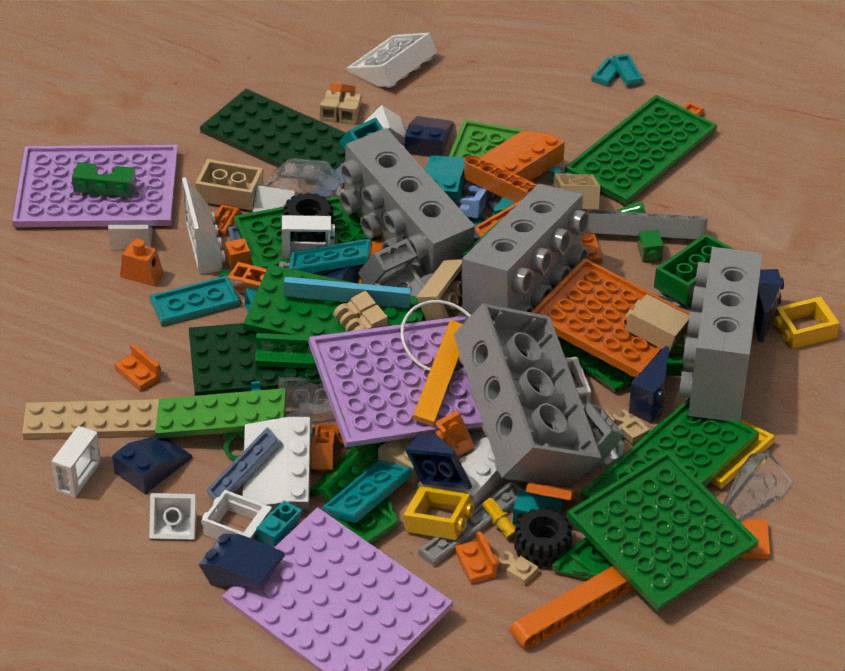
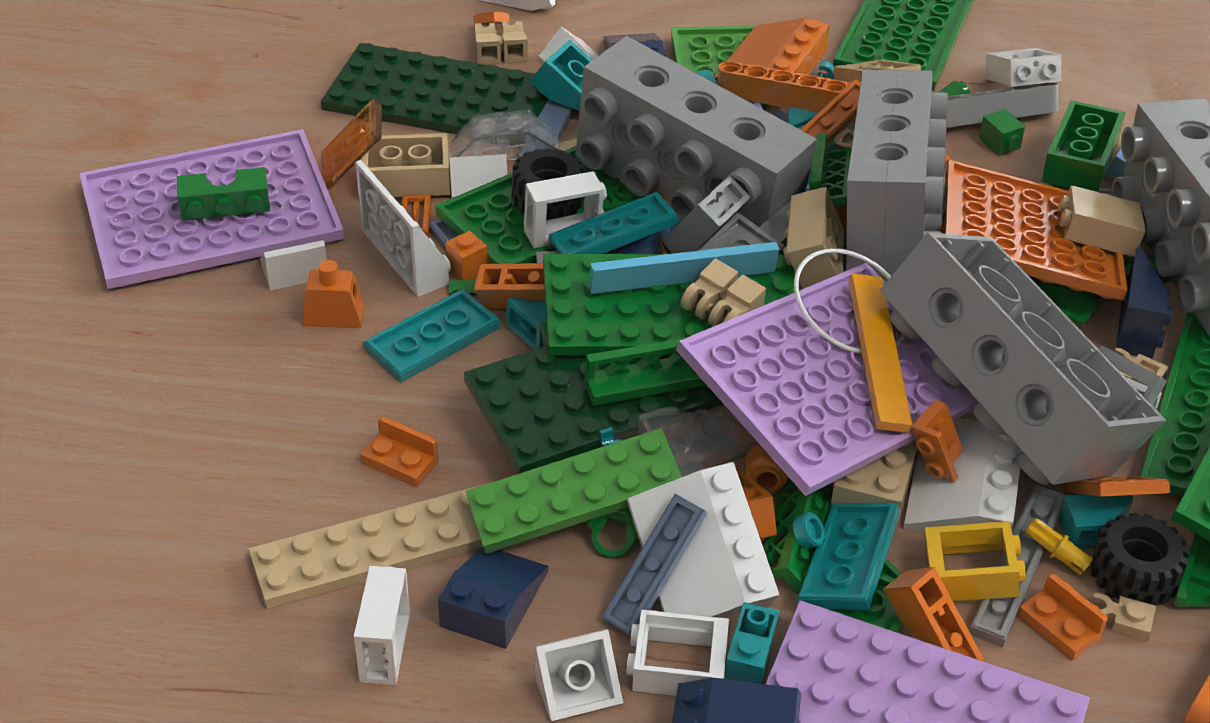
camera: 20 degrees left, 0 degrees up
(199, 161) = (351, 143): none -> clear orange tile
(349, 470) = (808, 530): none -> teal tile
(391, 536) = (929, 611): none -> orange slope
(436, 462) = (947, 484): dark blue slope -> none
(693, 205) = (1028, 68): none -> white window

